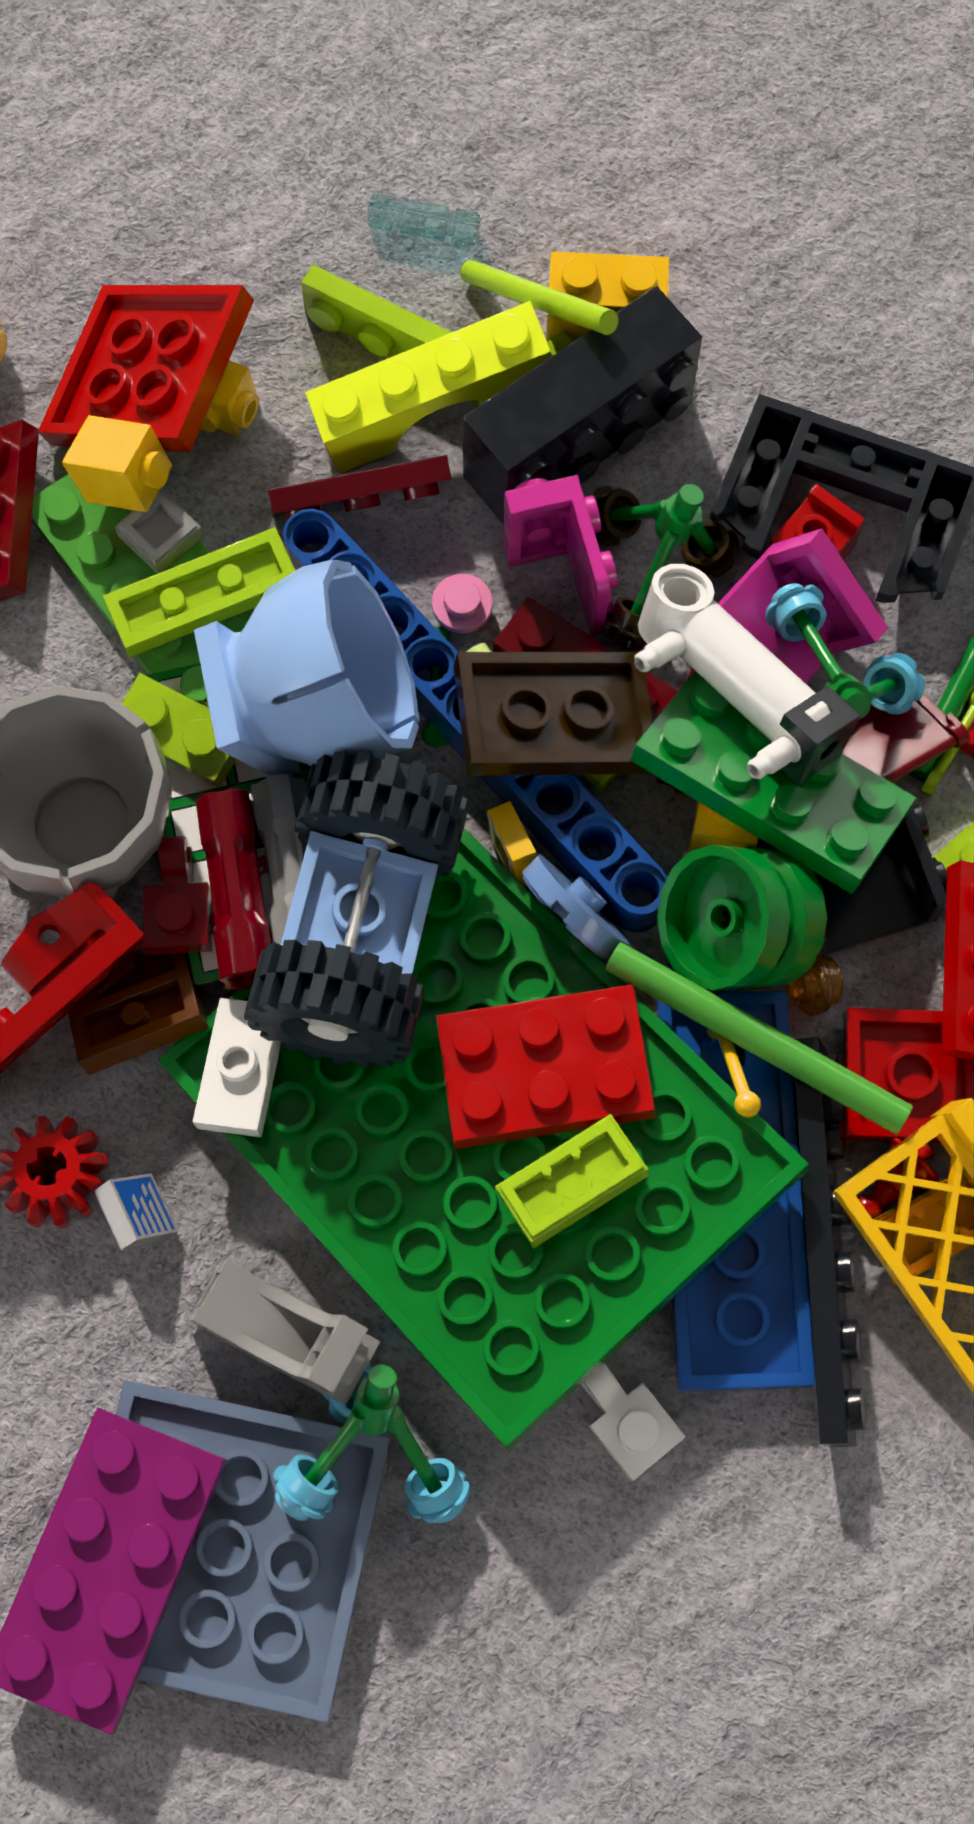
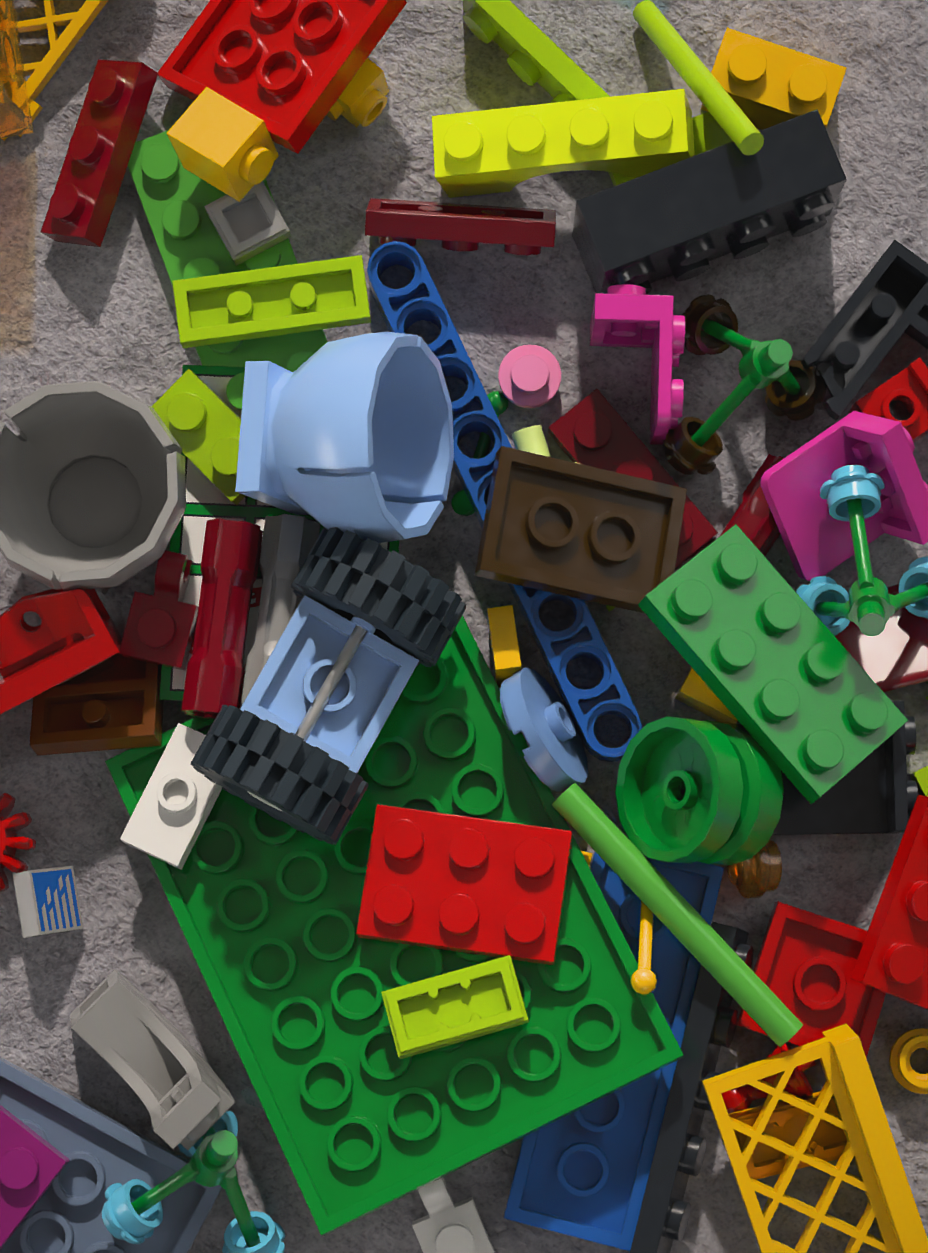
camera: 20 degrees right, 10 degrees up
(686, 622) = (810, 621): white piece -> none

